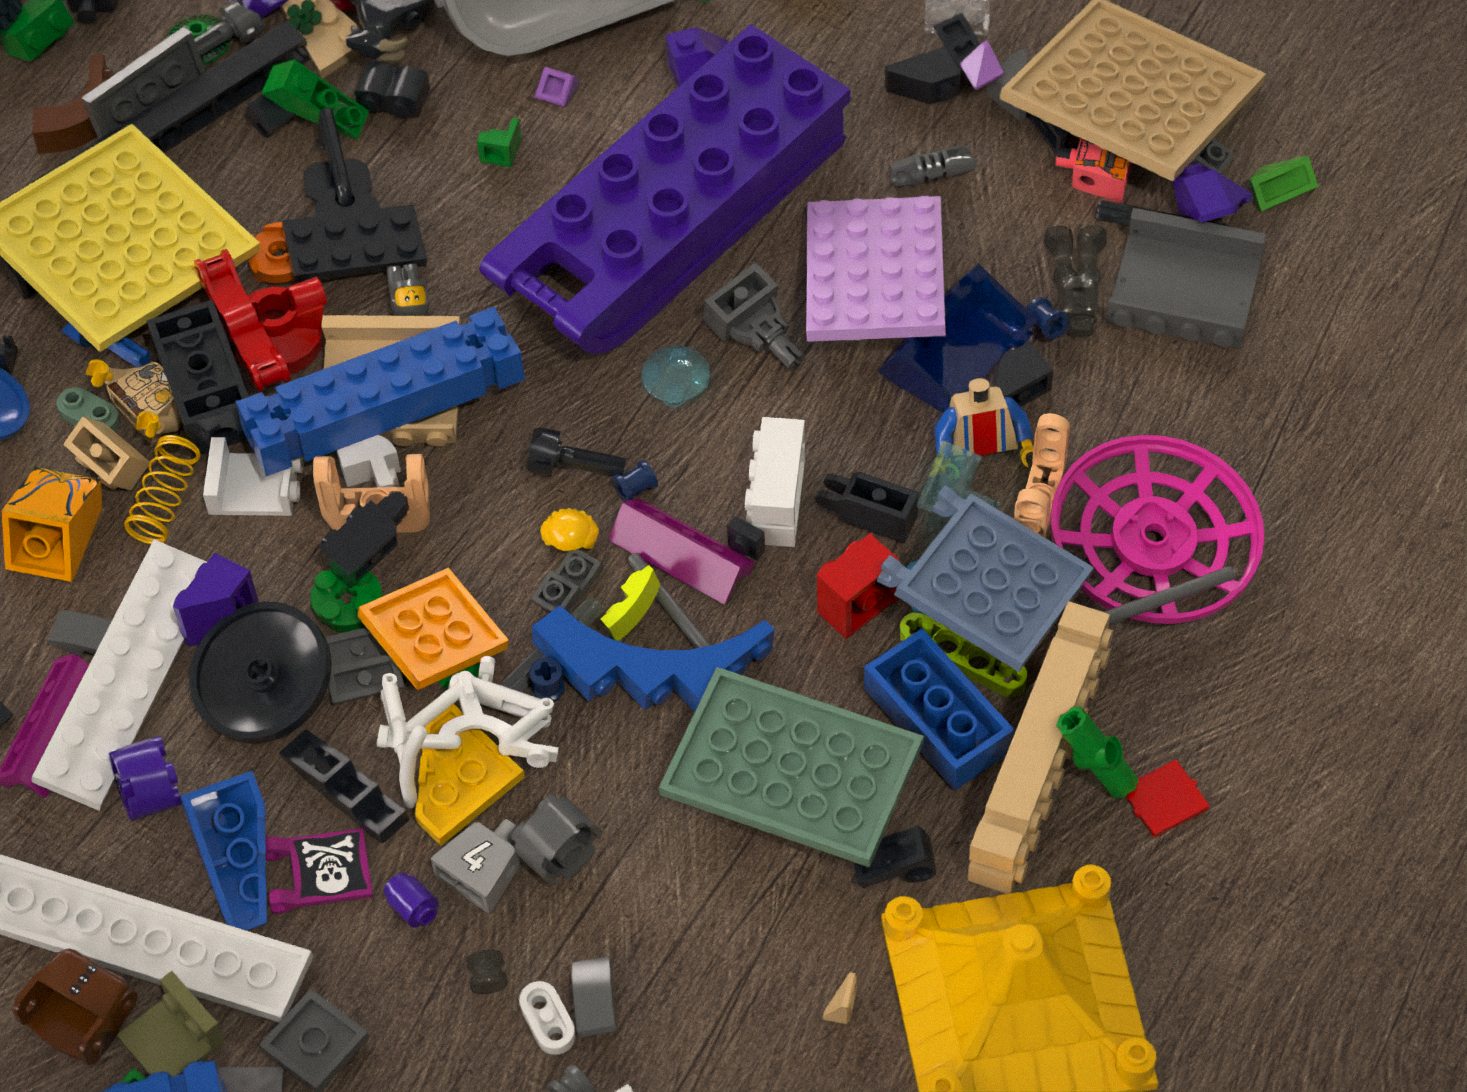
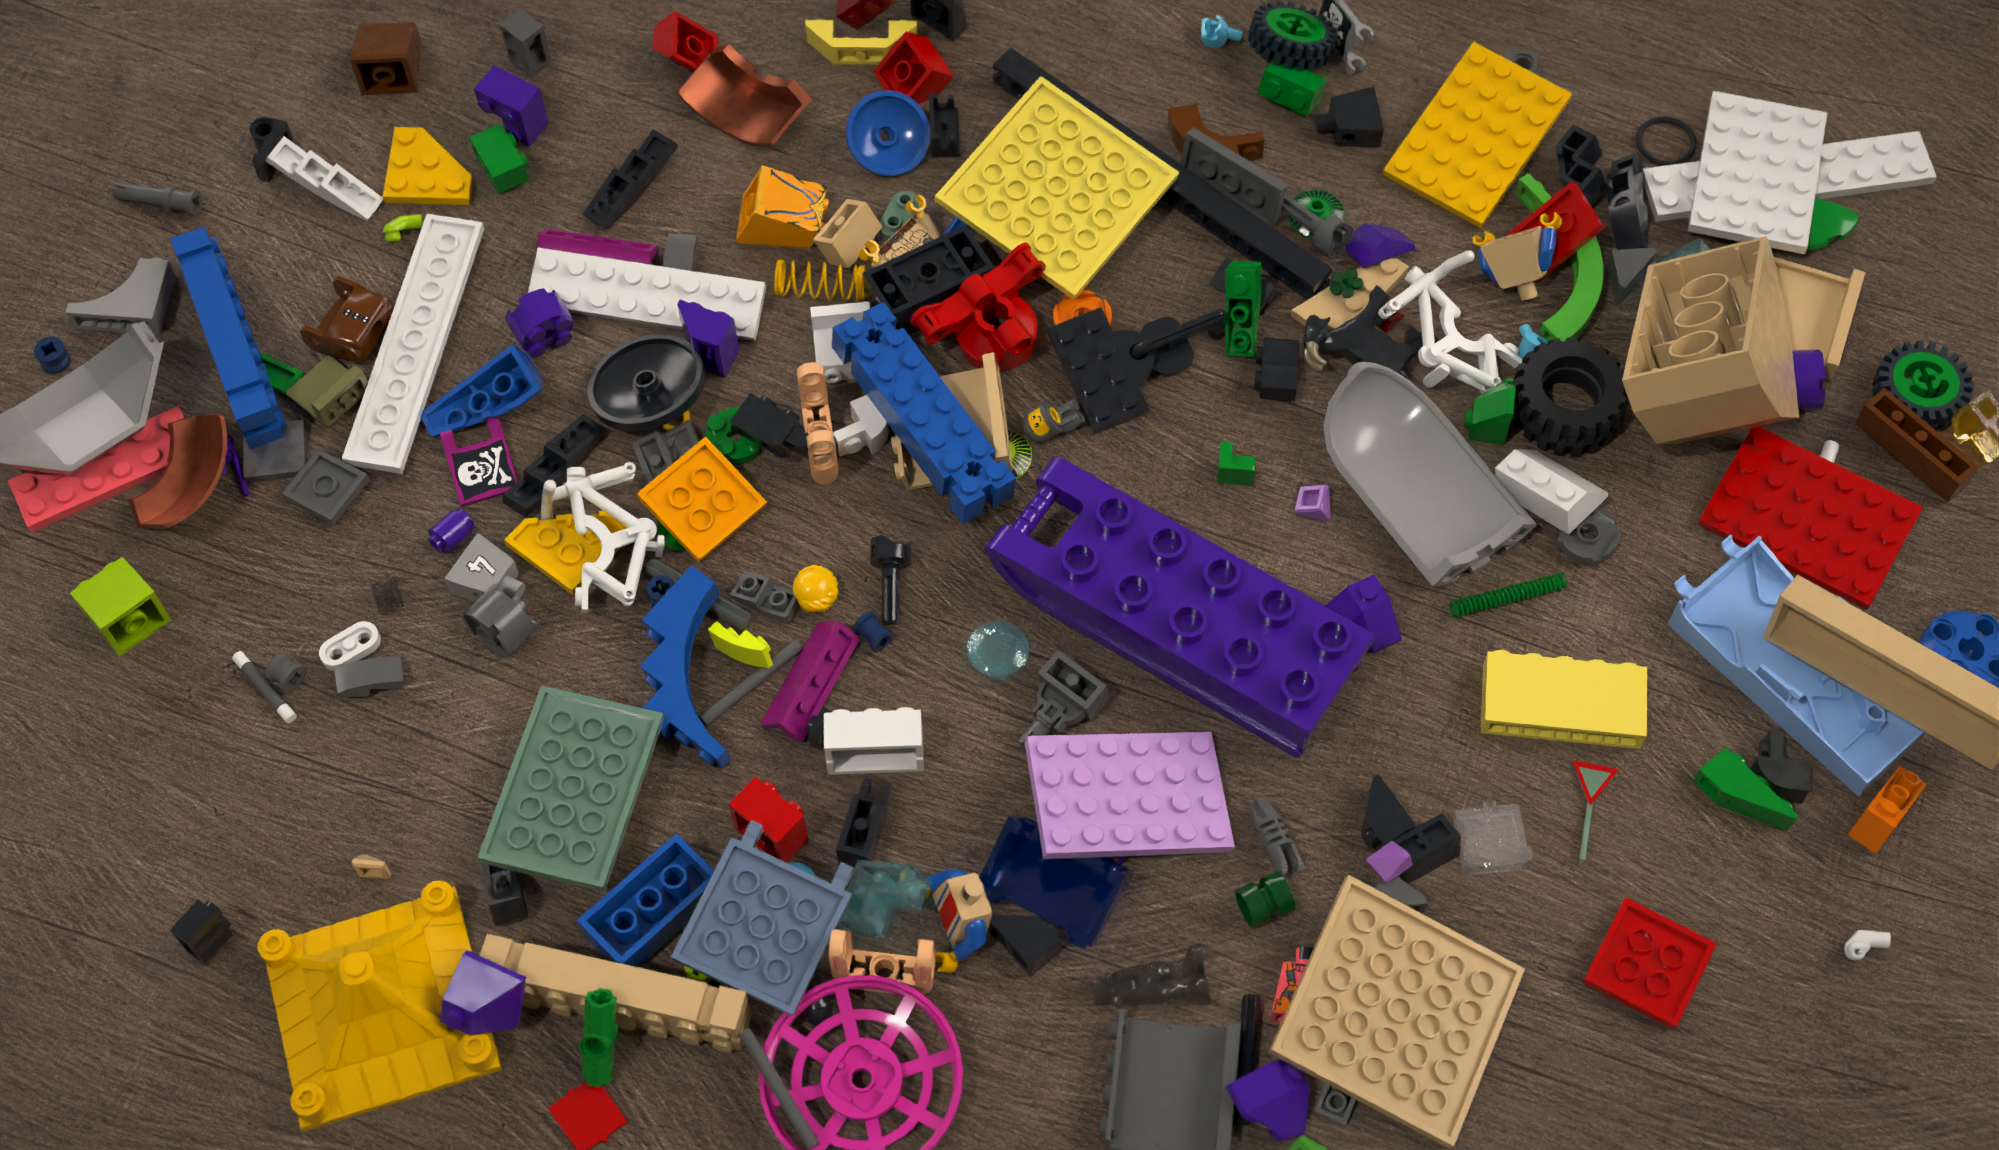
camera: 80 degrees right, 5 degrees up
(1002, 178) = (1263, 900): none -> dark green wheel
(1040, 857) = (483, 996): none -> dark purple slope
(1051, 321) = (1101, 958): dark blue bush -> none

